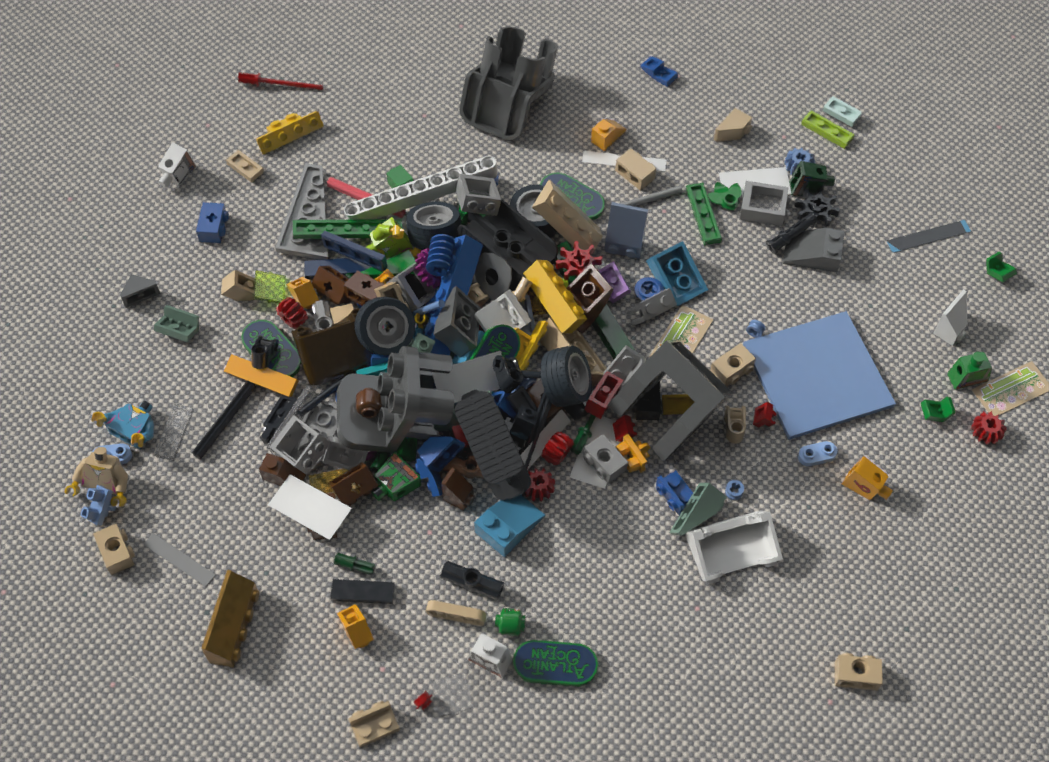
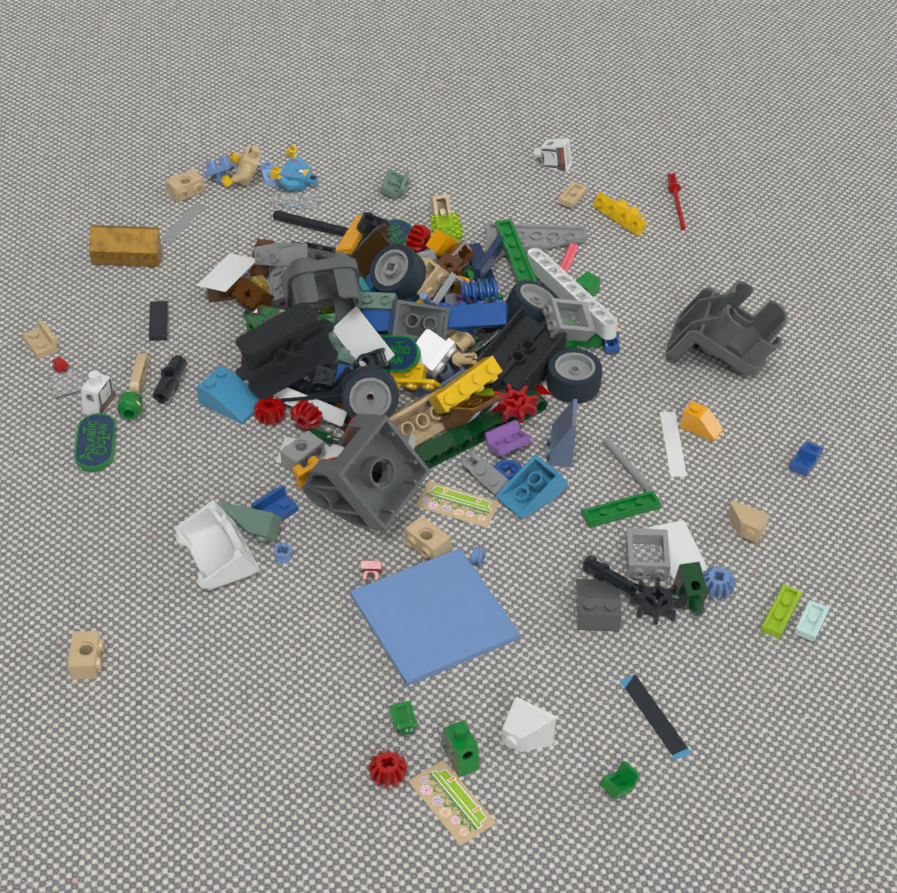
camera: 80 degrees right, 15 degrees down
(138, 290) = (423, 157): dark grey slope -> none
(212, 222) = (504, 185): blue brick -> none
(354, 563) = (183, 311): dark green axle -> none
(355, 626) = (123, 317): light orange slope -> none
(391, 240) = (507, 276): lime torso -> none
(567, 217) = (567, 381): tan slope -> none
(584, 197) = (609, 406): tile -> none
(635, 169) = (658, 447): tan brick -> none
(723, 195) = (646, 520): green plate -> none
(735, 420) = (357, 545): tan piece -> none
(818, 452) = (334, 616): light blue plate -> none
(867, 480) = (301, 650): light orange torso -> none

